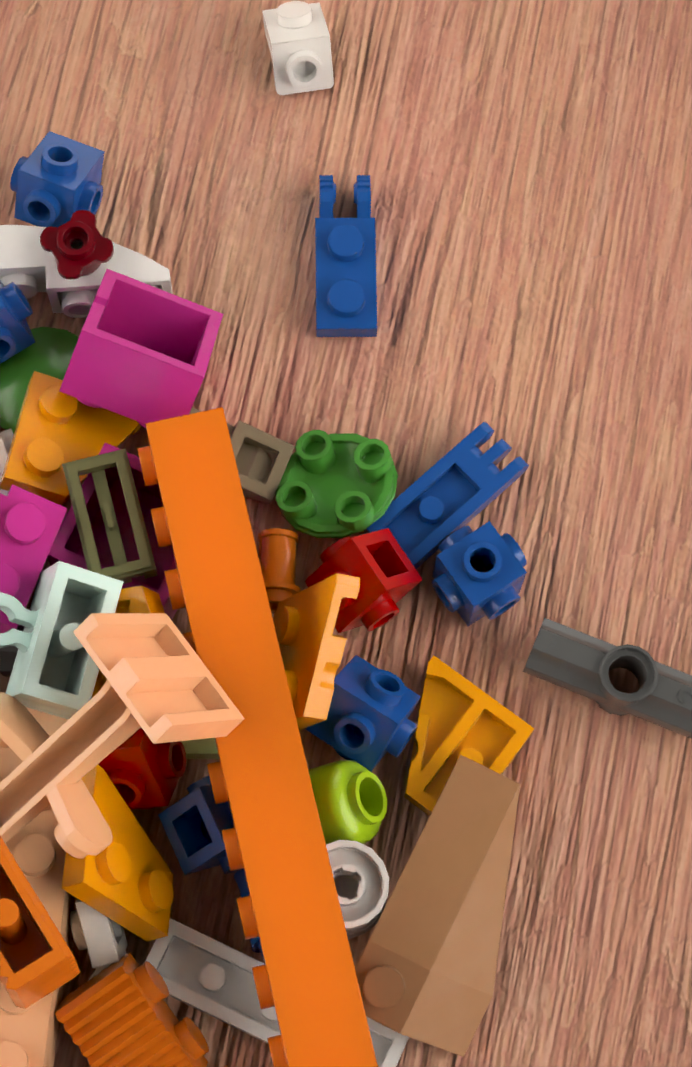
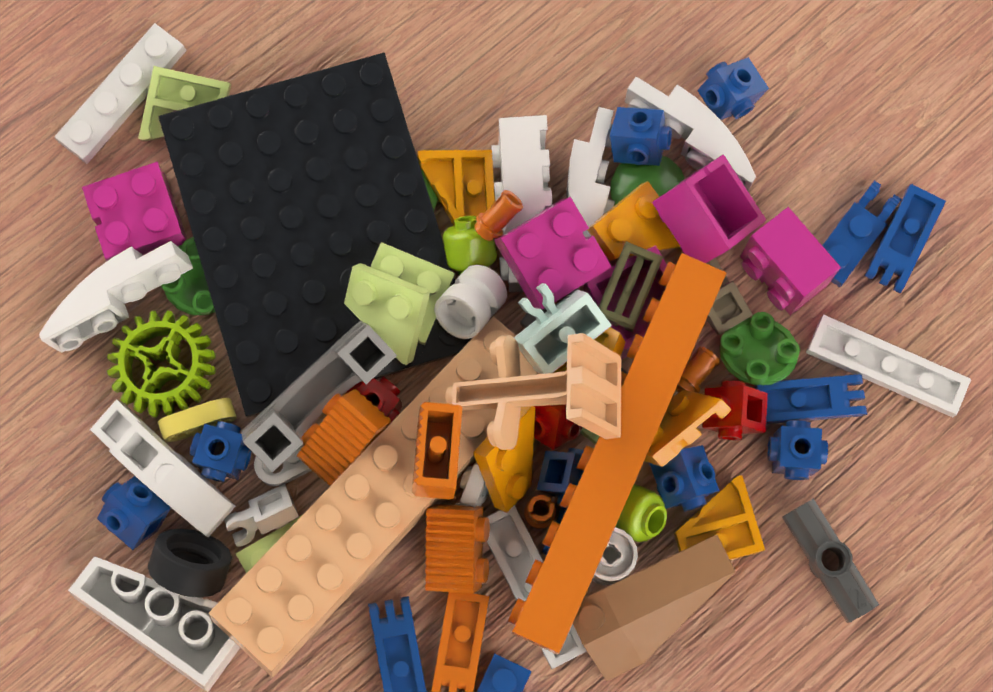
camera: 40 degrees right, 5 degrees up
(77, 262) = (712, 140): dark red plate -> none
(213, 916) = (540, 521): none -> orange pin
(289, 344) = (788, 261): none -> dark pink piece
(299, 47) = (916, 101): white bracket -> none
(410, 216) = (906, 236): none -> blue hinge
(508, 387) = (888, 366): none -> white plate

